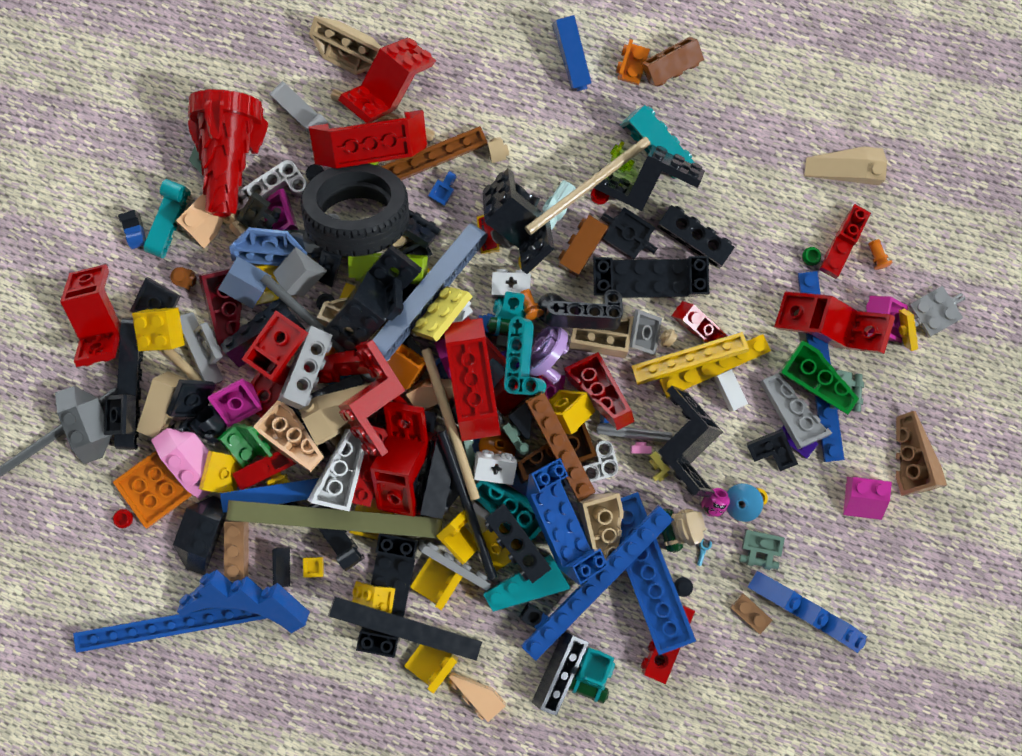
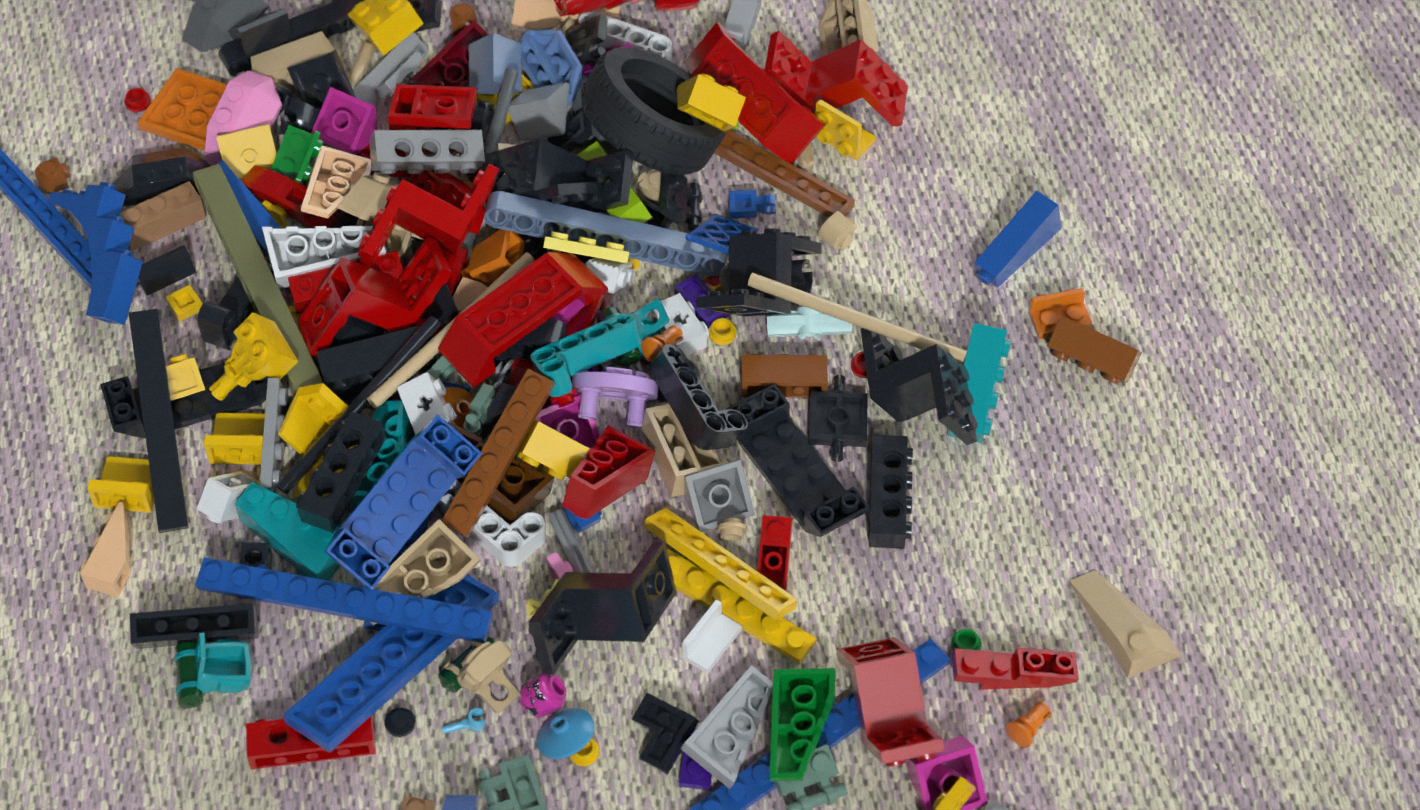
camera: 60 degrees right, 30 degrees down
(157, 602) = (52, 175): none -> dark orange plate
(378, 173) = (710, 101): none -> yellow slope
(400, 549) = (256, 354): none -> yellow brick
(425, 98) = (843, 132): none -> yellow bracket
(472, 233) = (717, 243): none -> blue window
(476, 608) = (221, 495): none -> white slope
(499, 259) = (693, 288): none -> dark purple plate

